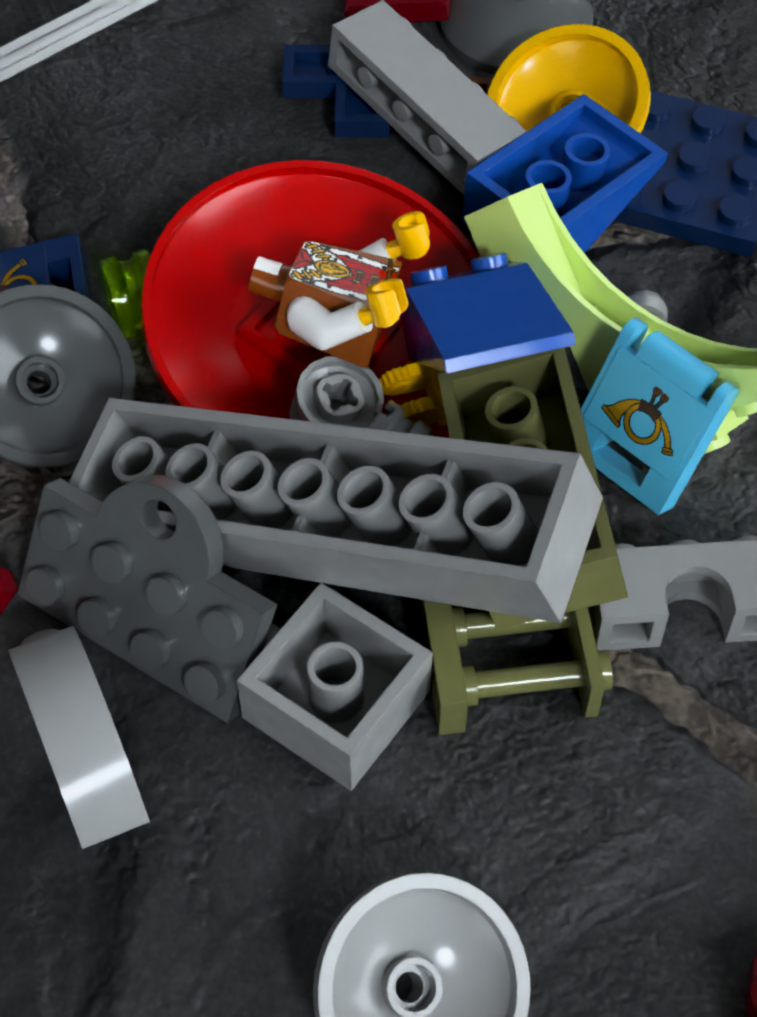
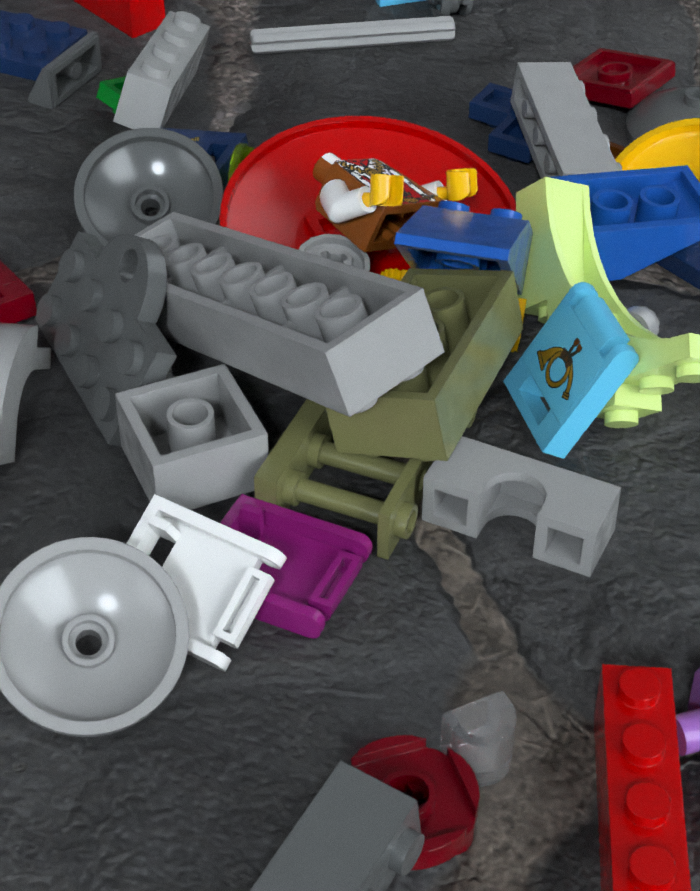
camera: 30 degrees right, 15 degrees down
(477, 840) = (213, 572): none -> white container
(523, 784) = (318, 565): none -> magenta container

